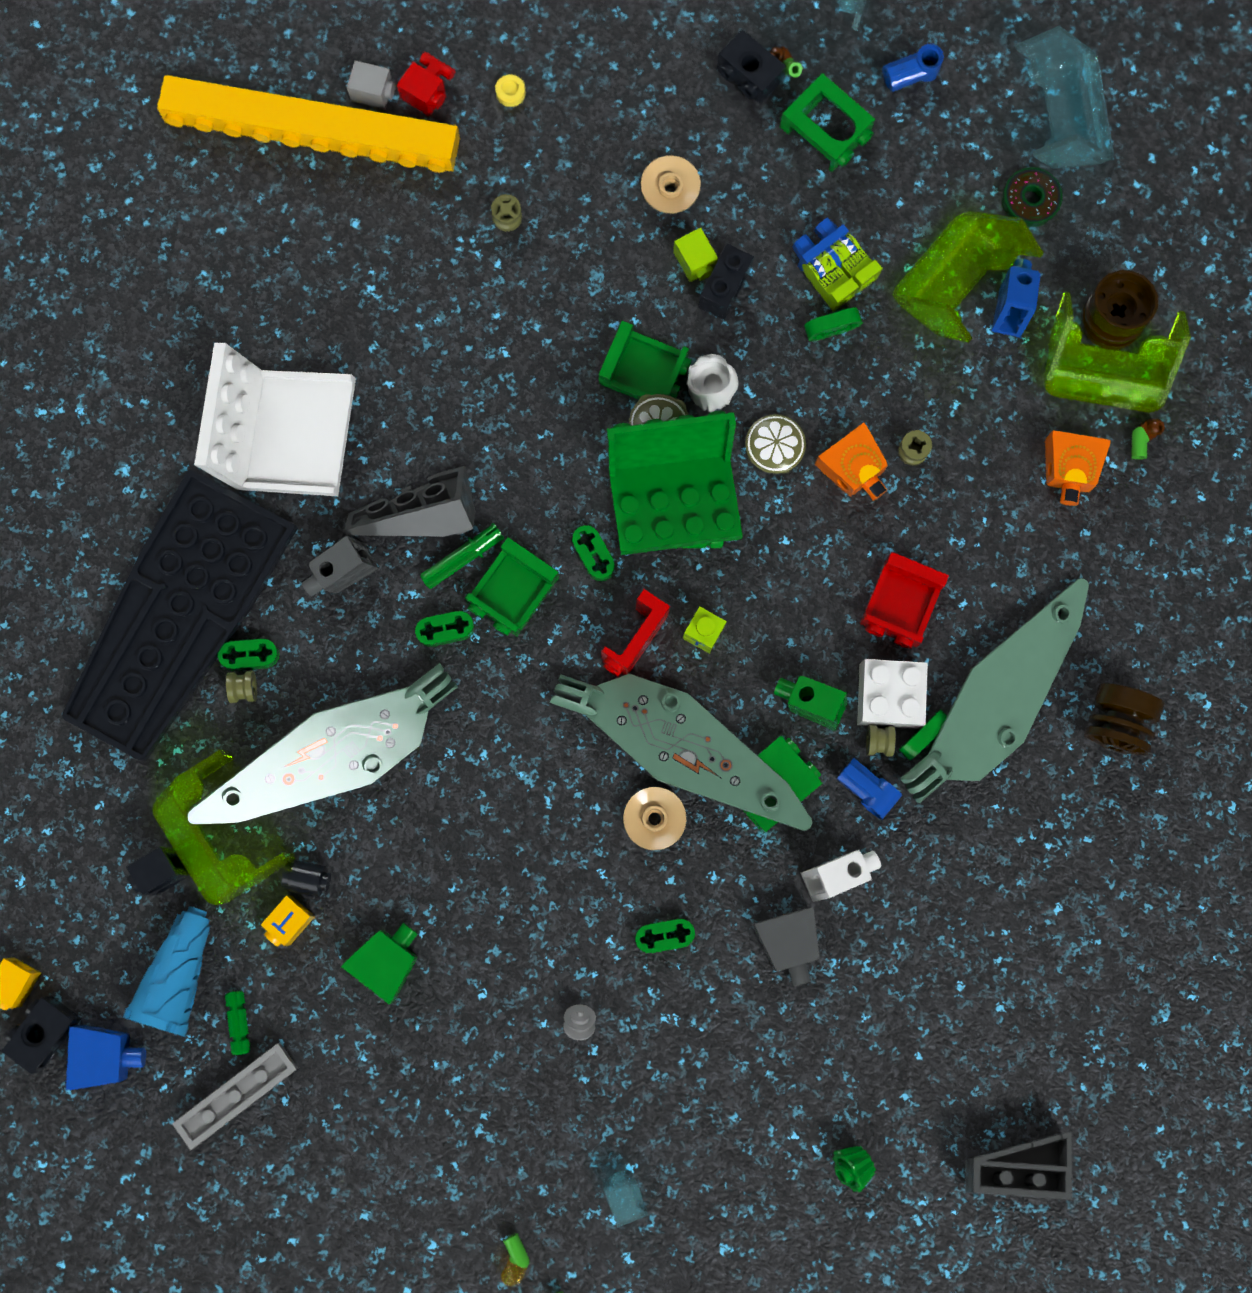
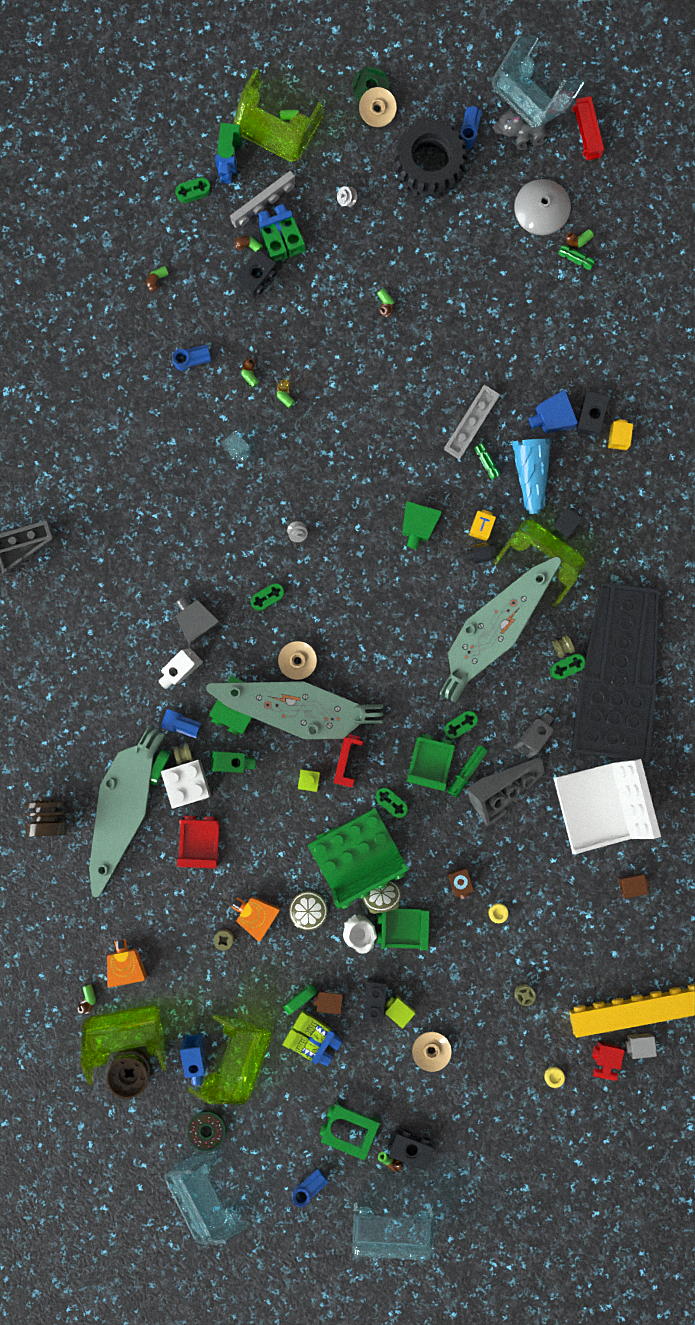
camera: 165 degrees right, 5 degrees up
(287, 303) = (633, 885): none -> reddish brown brick
(499, 339) = (498, 913): none -> light yellow tile
(536, 399) = (460, 883): none -> reddish brown brick
(792, 305) = (328, 1001): none -> reddish brown brick
(853, 1167) = (116, 510): green piece -> none

